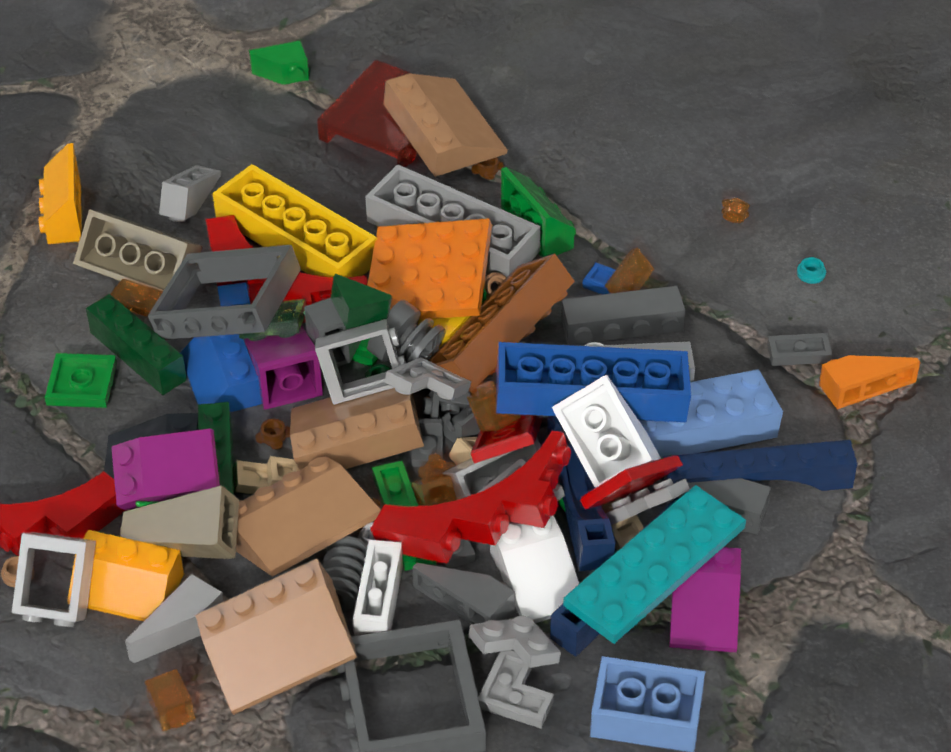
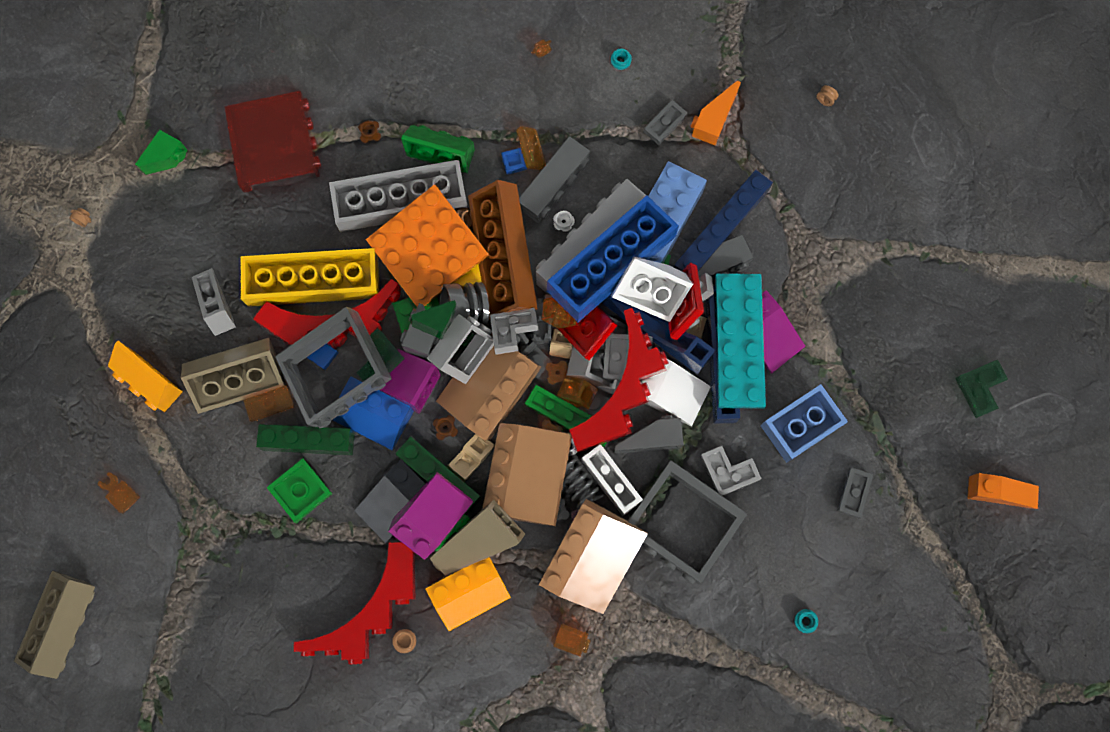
camera: 45 degrees left, 30 degrees up
(84, 553) = (419, 624): window -> none
(159, 62) = (80, 217): none -> medium nougat plate
(173, 620) = (523, 582): light grey slope -> none
(441, 122) = (320, 125): medium nougat slope -> none
(518, 635) = (705, 438): light grey plate -> none

